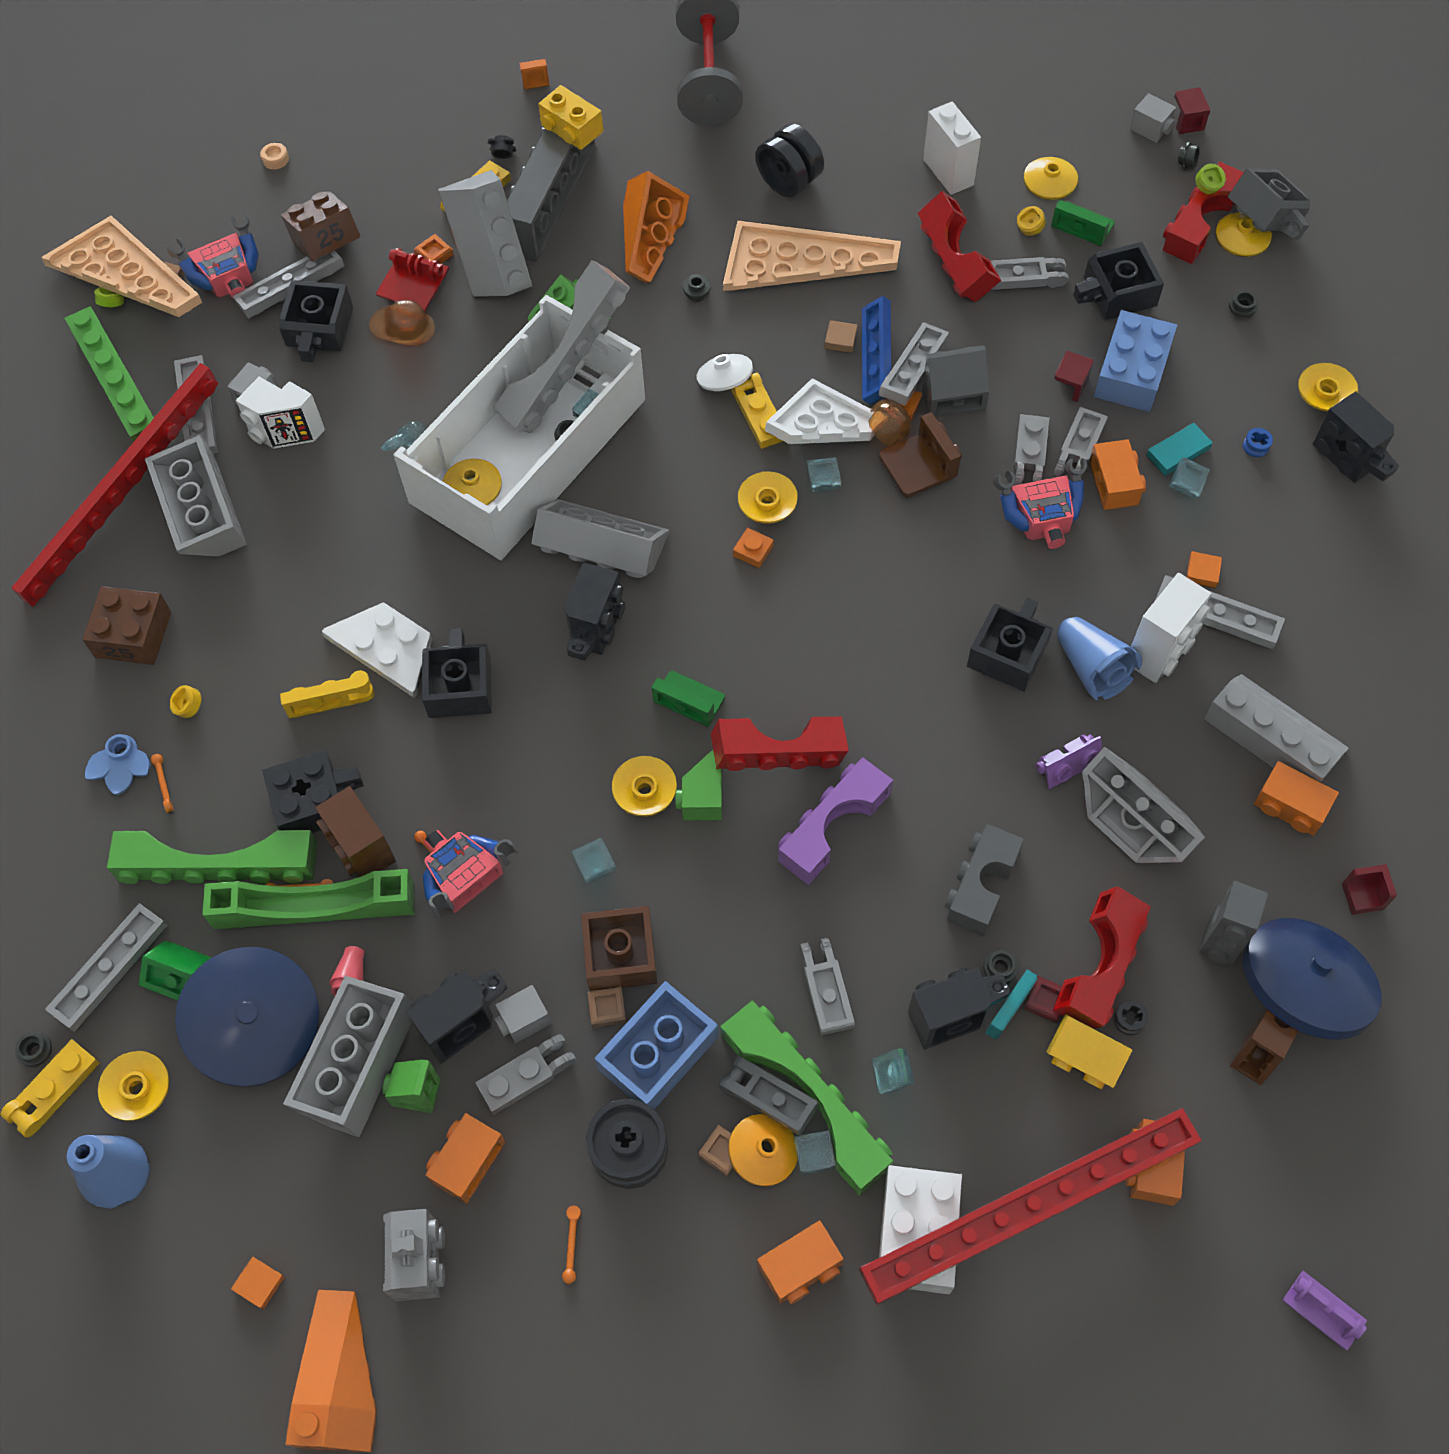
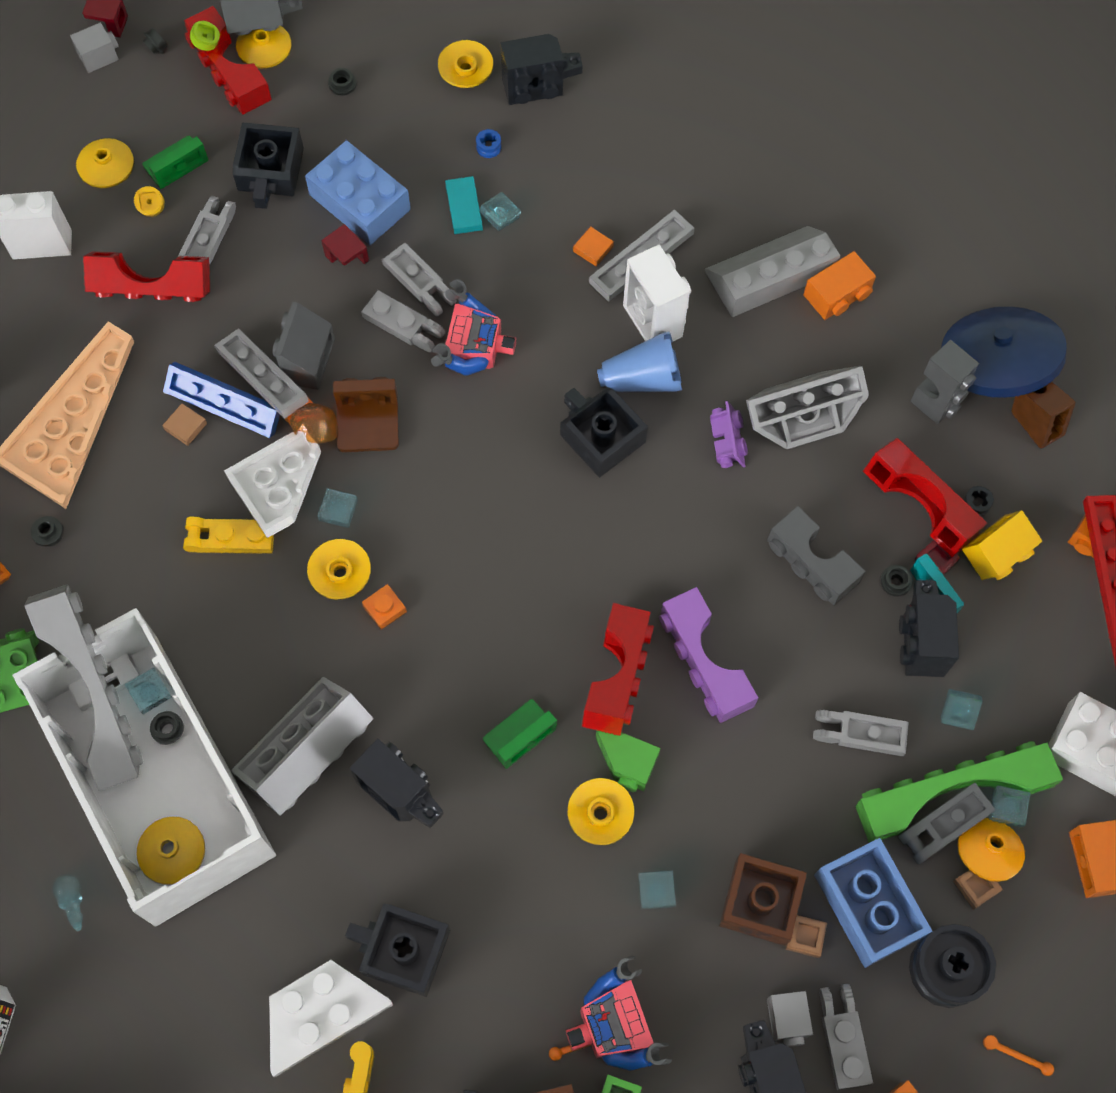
camera: 70 degrees left, 5 degrees up
(725, 372) = (178, 551): white dish -> none
(1117, 474) = (469, 262): orange brick -> none
(1369, 889) = (939, 274): dark red panel -> none

